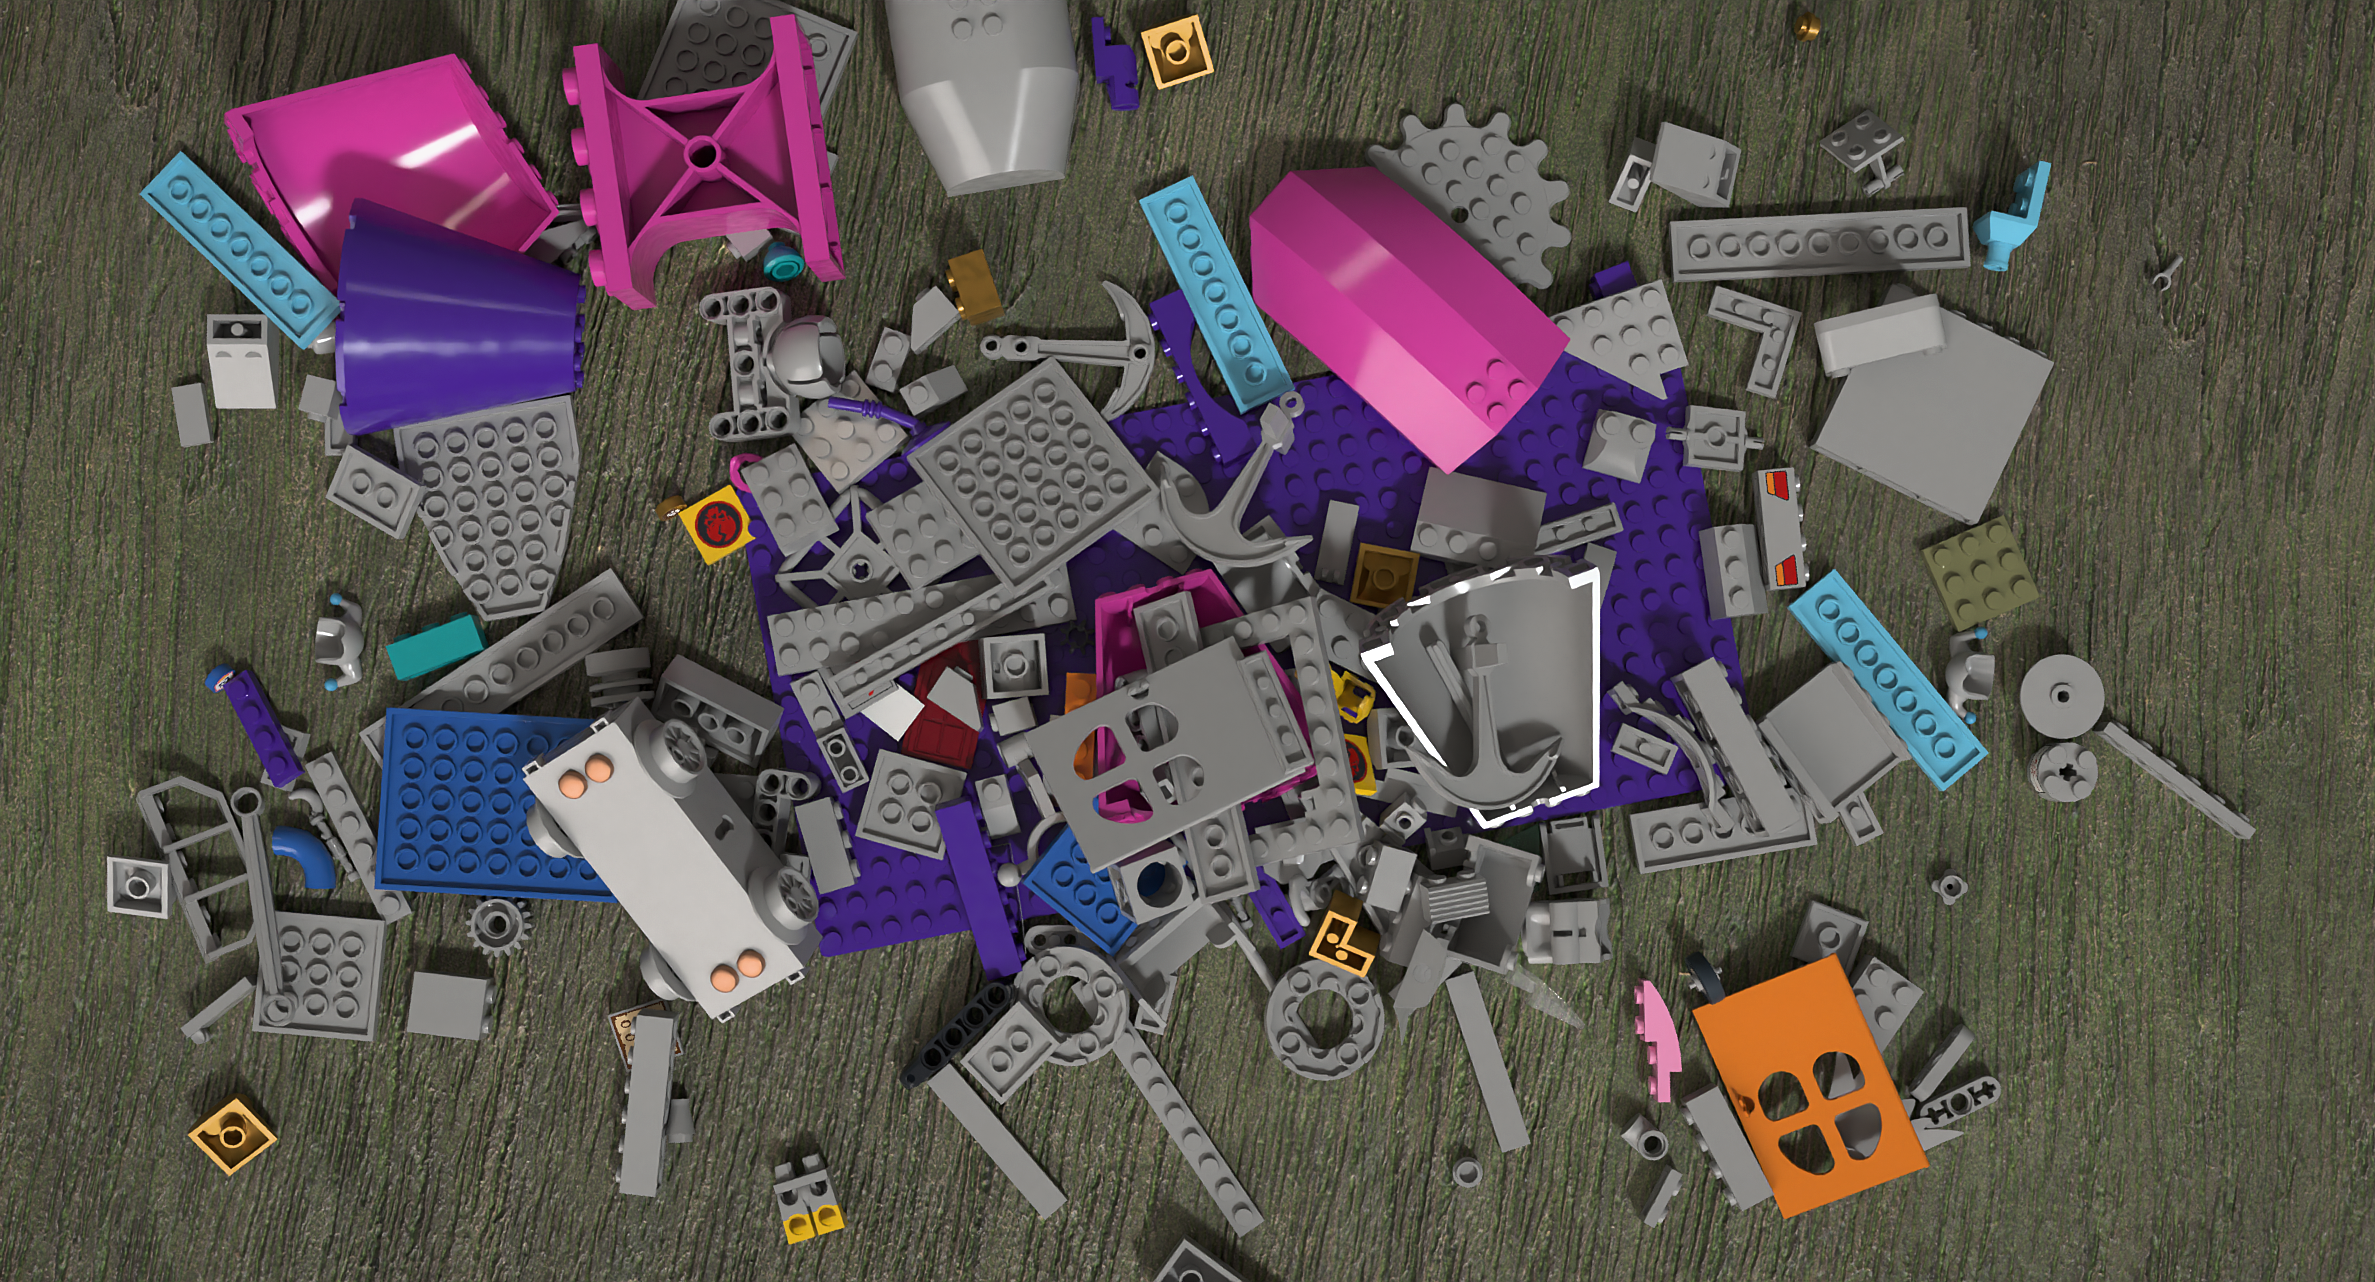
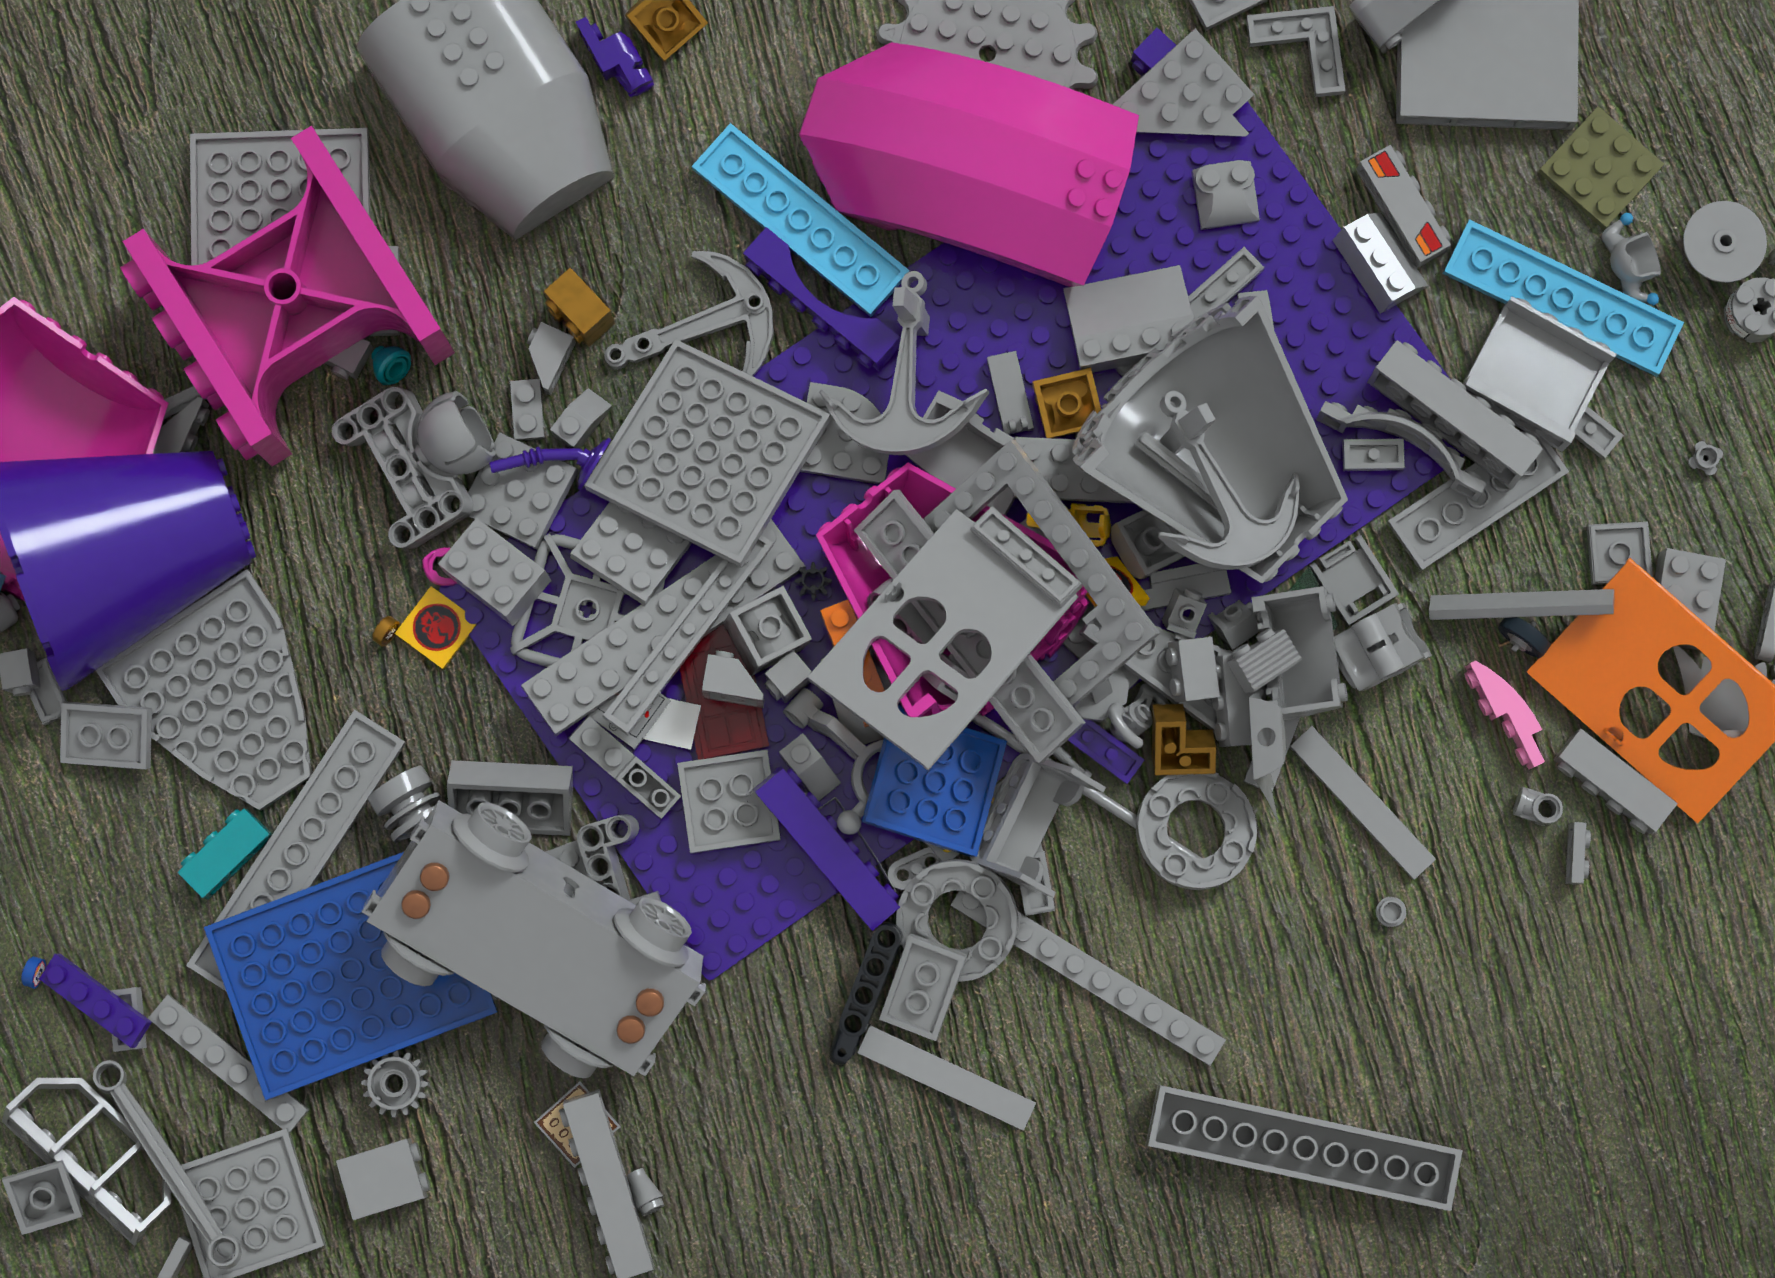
camera: 20 degrees left, 5 degrees down
(309, 852) = (186, 1096): blue cylinder -> none
(317, 819) = (181, 1063): light grey piece -> none
(341, 642) = (132, 889): light grey piece -> none
(808, 1201) = (786, 1206): light grey hips -> none
(827, 844) = (668, 871): light grey brick -> none
(1173, 894) = (956, 776): light grey brick -> none
(1542, 996) = (1383, 719): clear slope -> none
(1714, 438) = (1308, 151): light grey plate -> none
(1716, 949) = (1522, 604): none -> light grey tile

